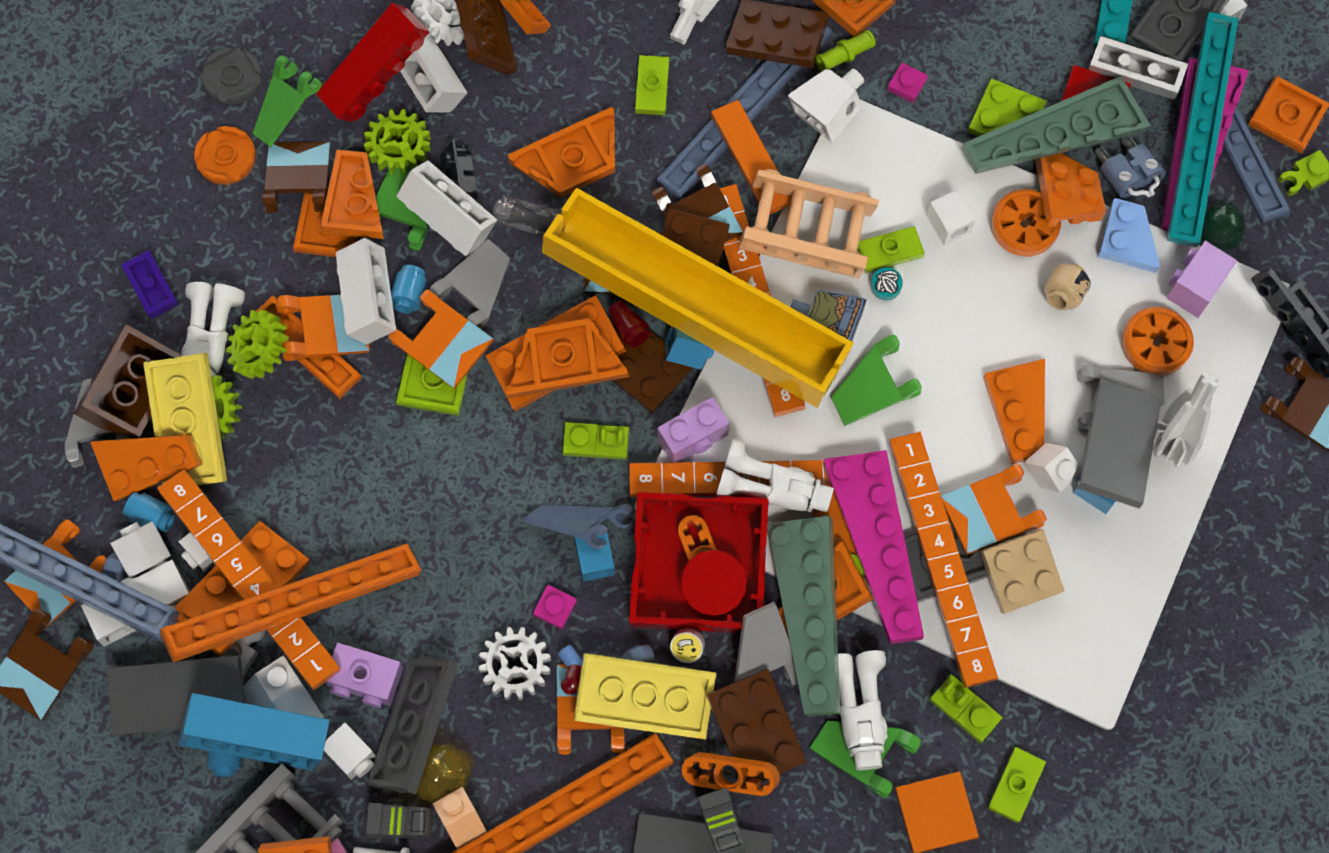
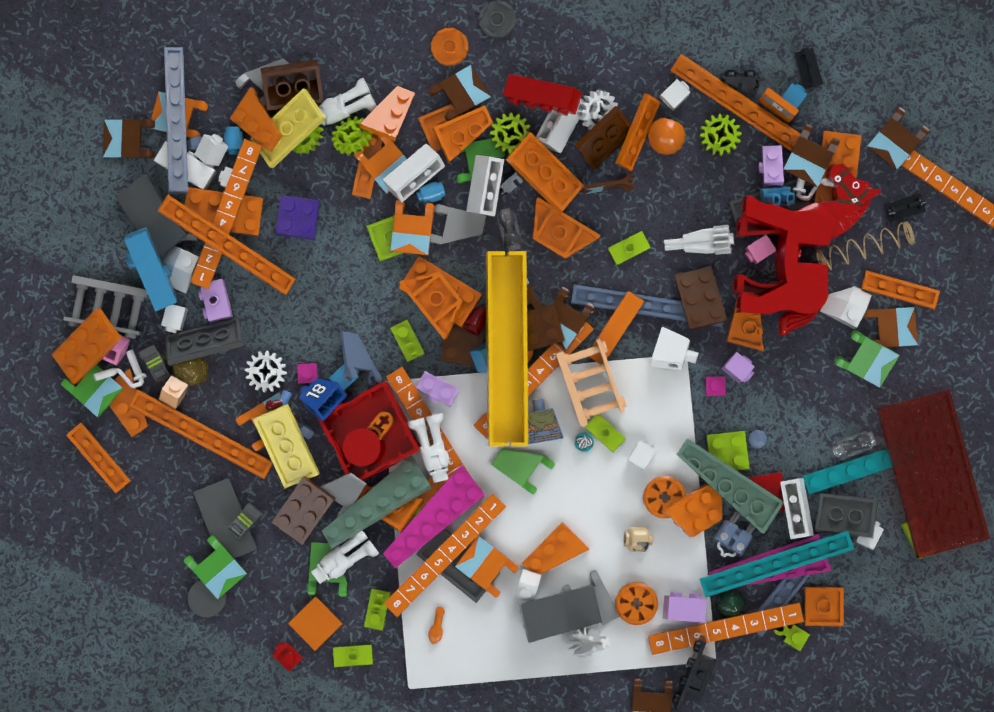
camera: 65 degrees right, 15 degrees up
(149, 284) = (353, 57): dark purple plate -> none
(262, 276) = (389, 114): none -> wing
(282, 100) = (495, 57): bright green flag -> none
(321, 486) = (298, 217): none -> dark purple brick
(480, 123) = (544, 172): none -> orange plate
(553, 53) = (611, 185): none -> reddish brown flag
(605, 599) = (322, 397): none -> blue torso
(687, 645) = (326, 451): tile -> none
(752, 786) = (266, 505): orange beam -> none
(846, 50) = (713, 341): lime pin -> none
(902, 32) = (739, 368): none -> lavender brick
(1011, 70) = (757, 439): none -> sand blue tile
(1022, 571) = (463, 599): tan plate -> none
(1046, 638) = (436, 632): none -> orange piece
(1129, 237) = (690, 556): light blue wing -> none
(1255, 248) = (726, 628): none -> orange tile

